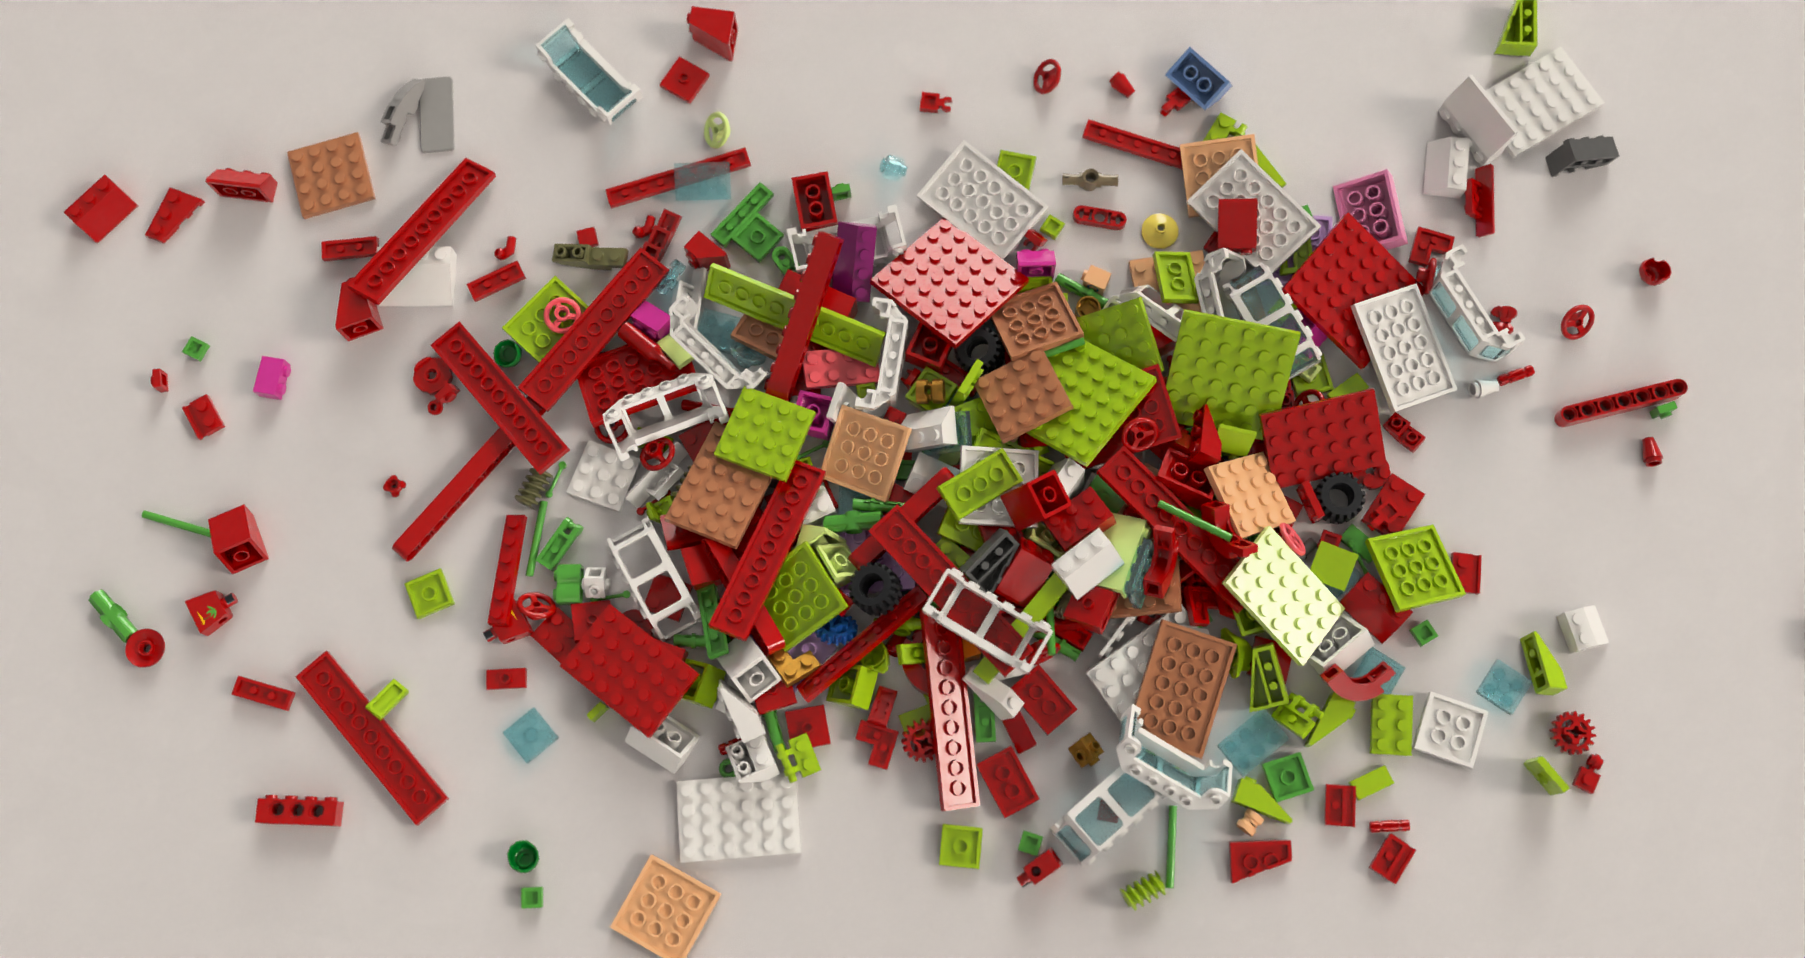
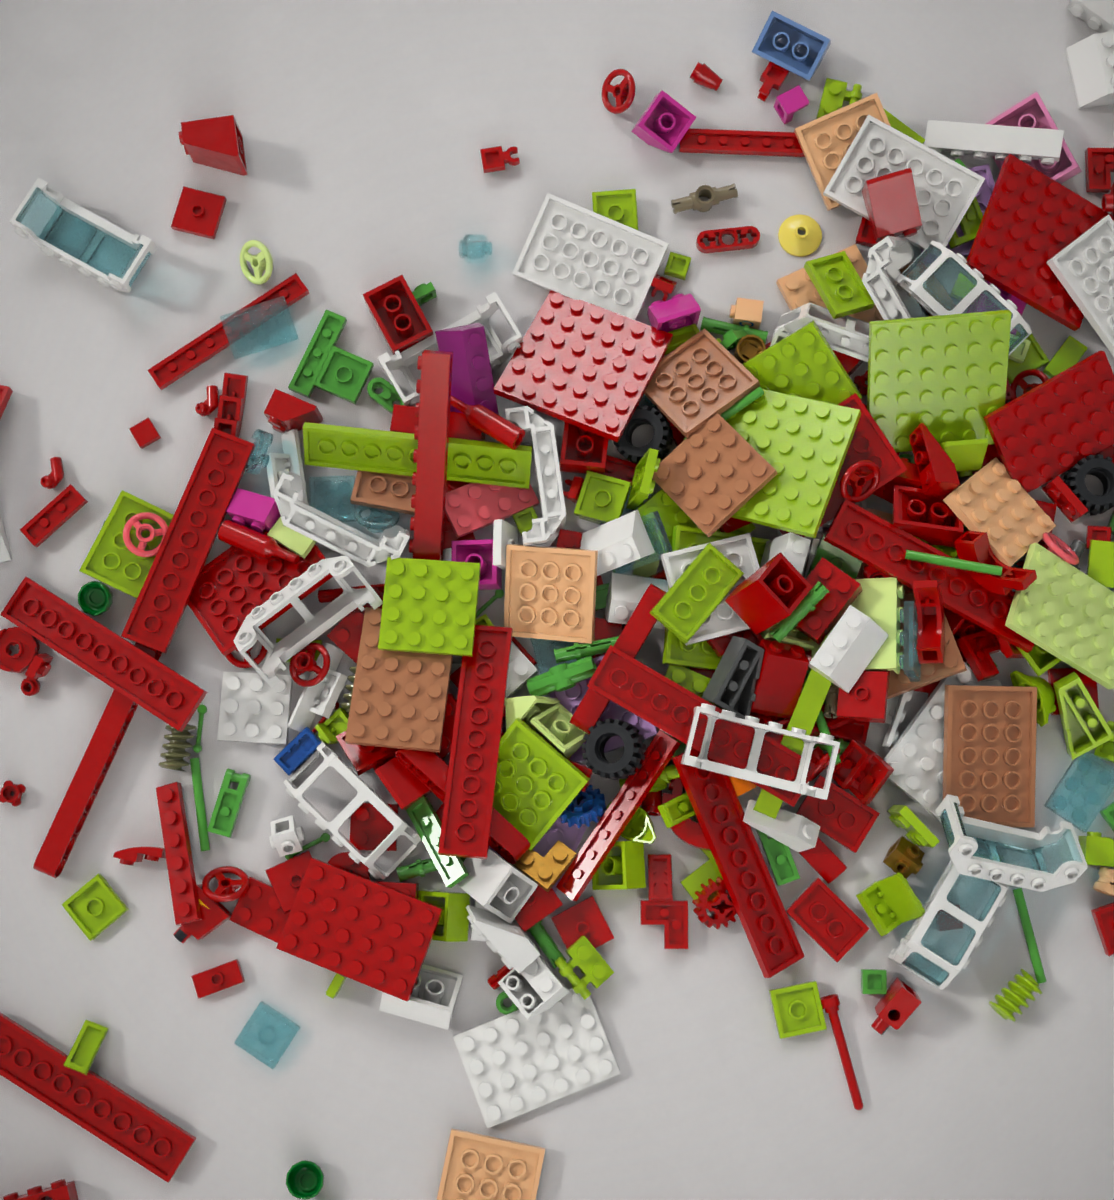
camera: 20 degrees left, 5 degrees up
(475, 561) = (135, 854): none -> red slope
(568, 584) = (255, 847): bright green brick -> none
(589, 257) = (155, 455): olive slope -> none
(626, 519) = (298, 751): none -> blue plate
(858, 305) = (491, 423): none -> red piece
(937, 391) = (611, 498): pearl gold wheel -> none
(989, 852) = (831, 1006): none -> red piece
(1062, 783) = (890, 903): none -> lime bracket
(1065, 517) = (808, 604): none -> bright green pin
(1072, 670) = (861, 771): none -> red slope
(1075, 111) = (663, 123): none -> dark pink slope
(1075, 296) = (732, 338): none -> bright green plate
(1094, 717) = (916, 831): none -> lime plate
(1183, 123) = (789, 103): none -> dark pink panel
(1340, 198) = (994, 140): none -> white brick

